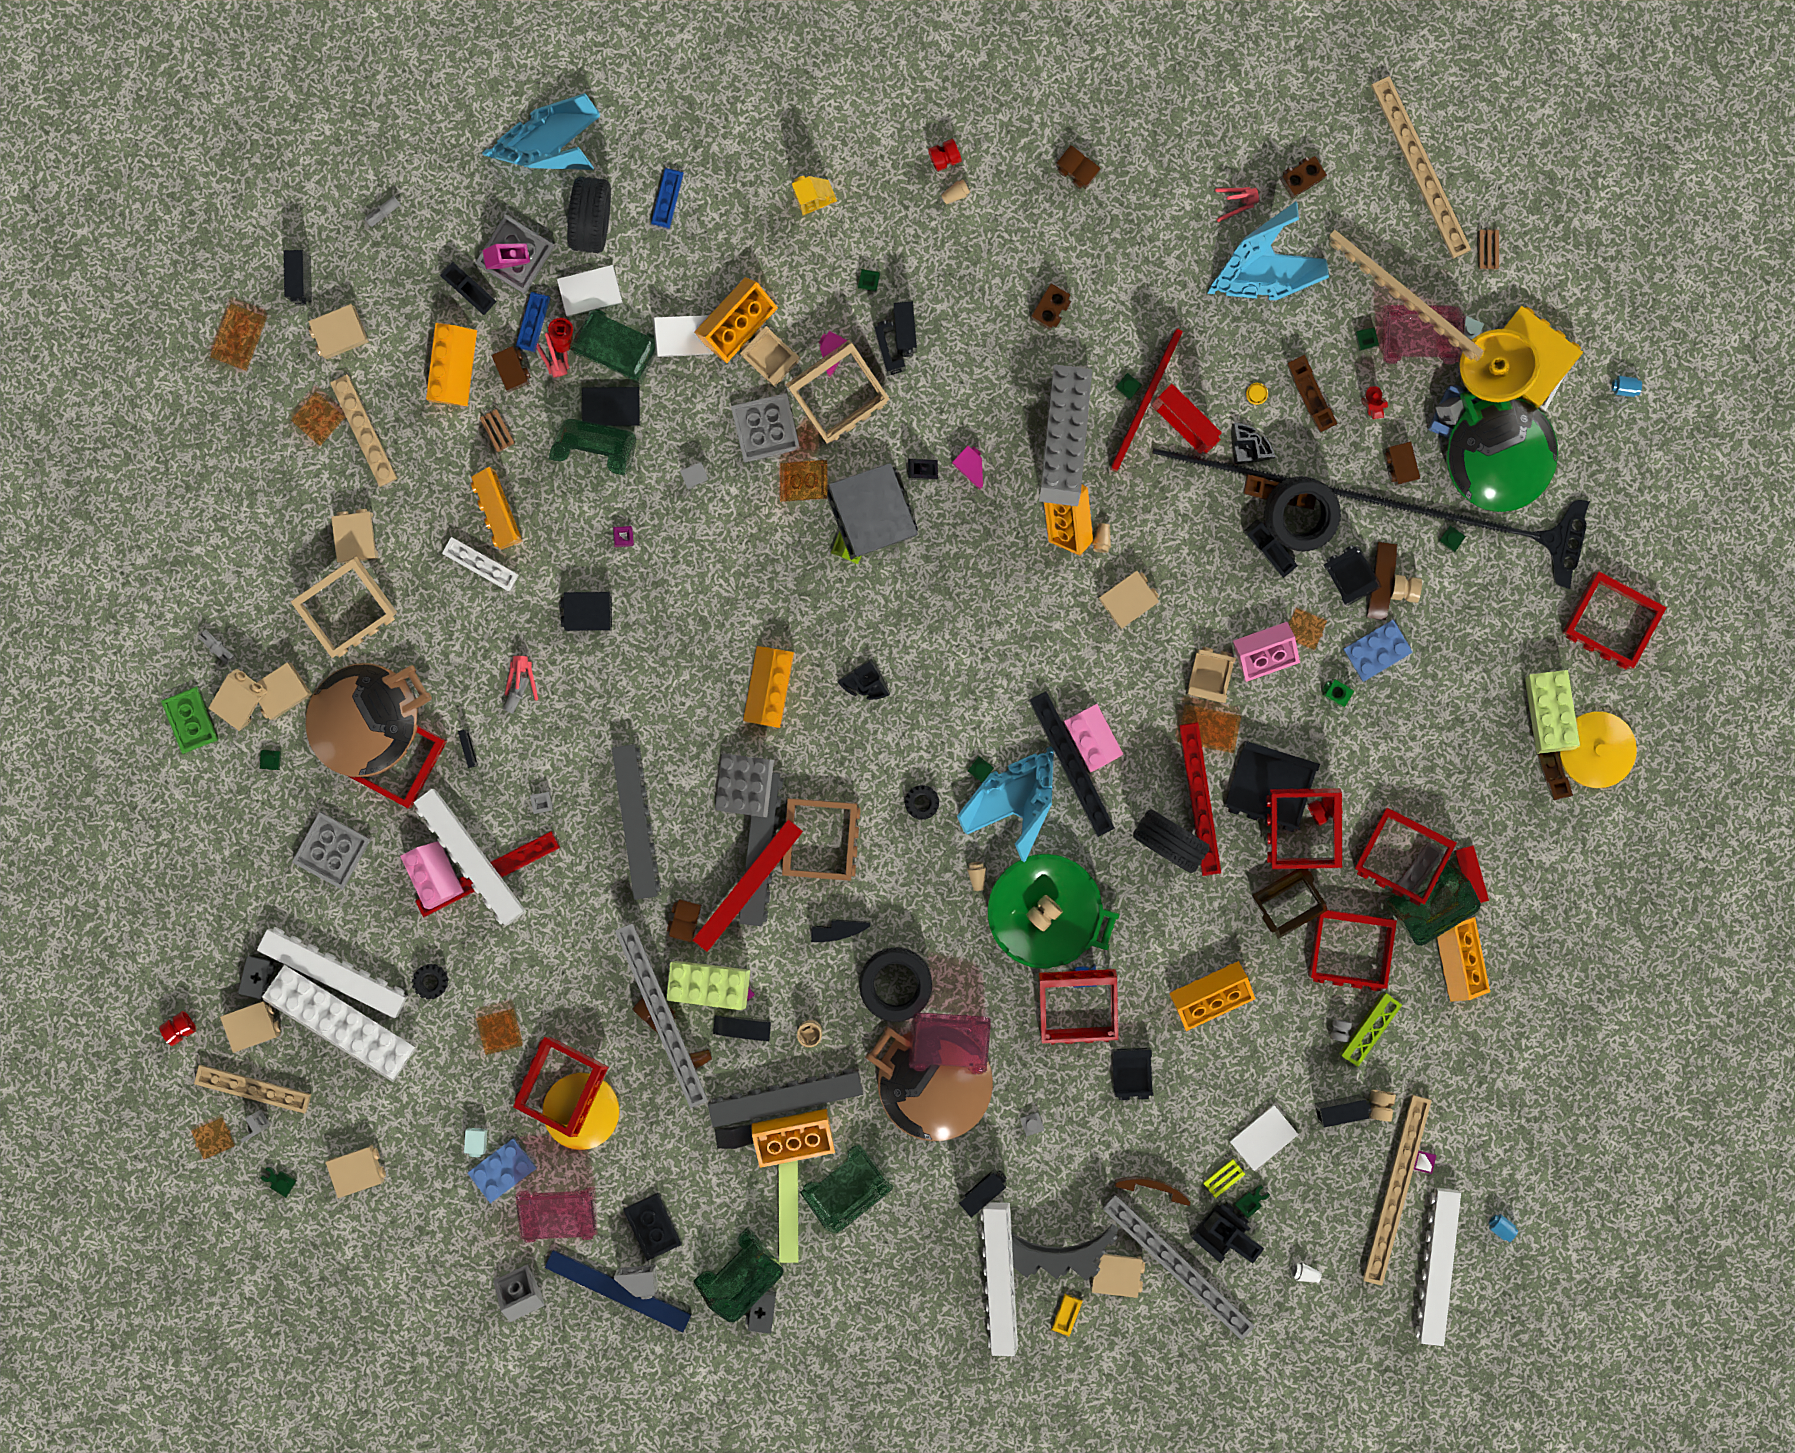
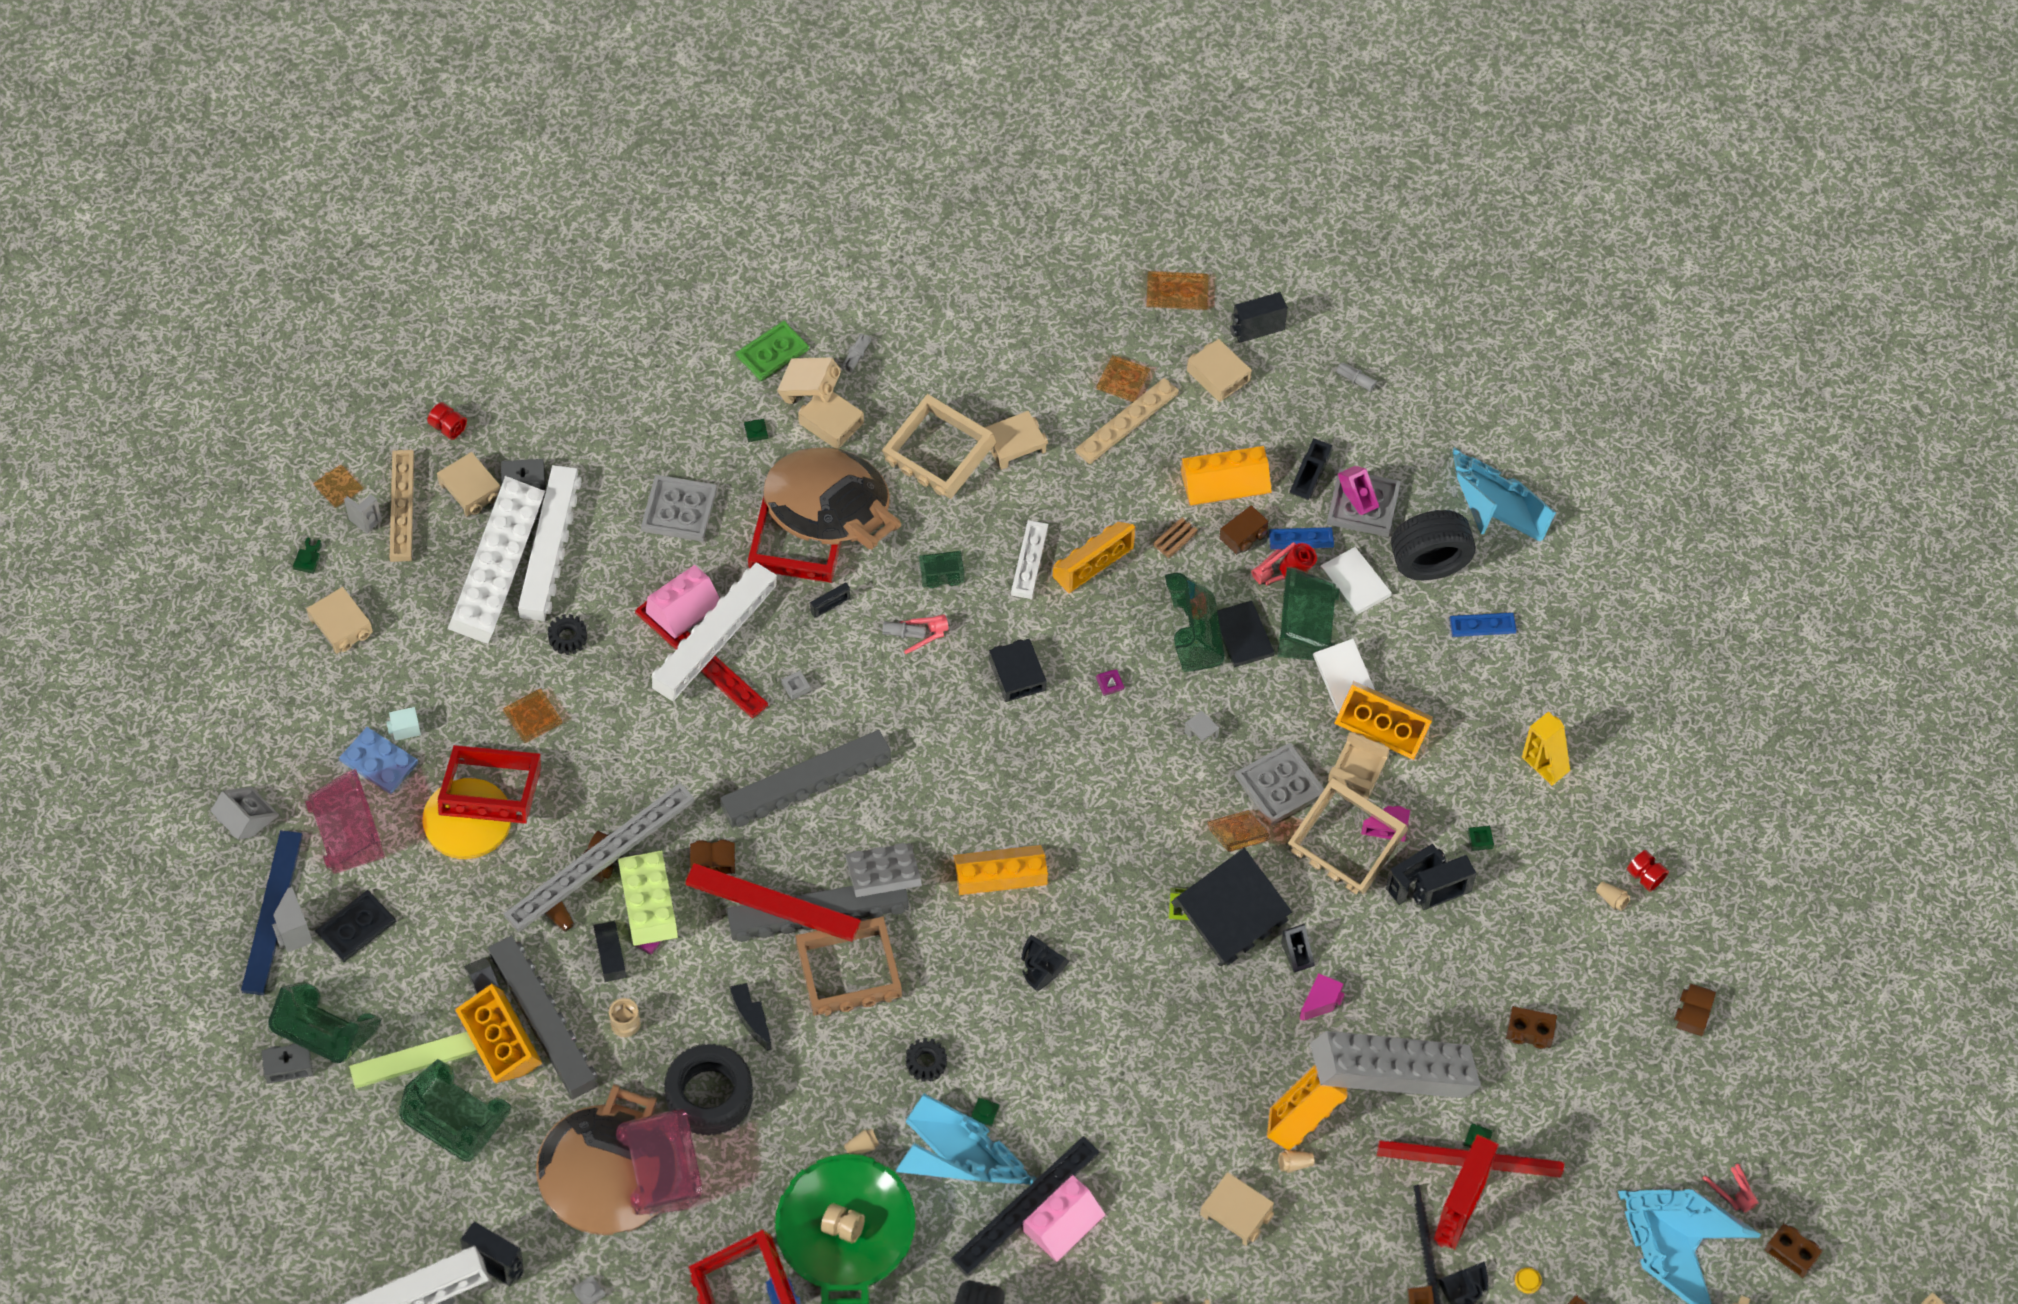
camera: 70 degrees right, 30 degrees down
(467, 644) = (941, 569): none -> clear green brick

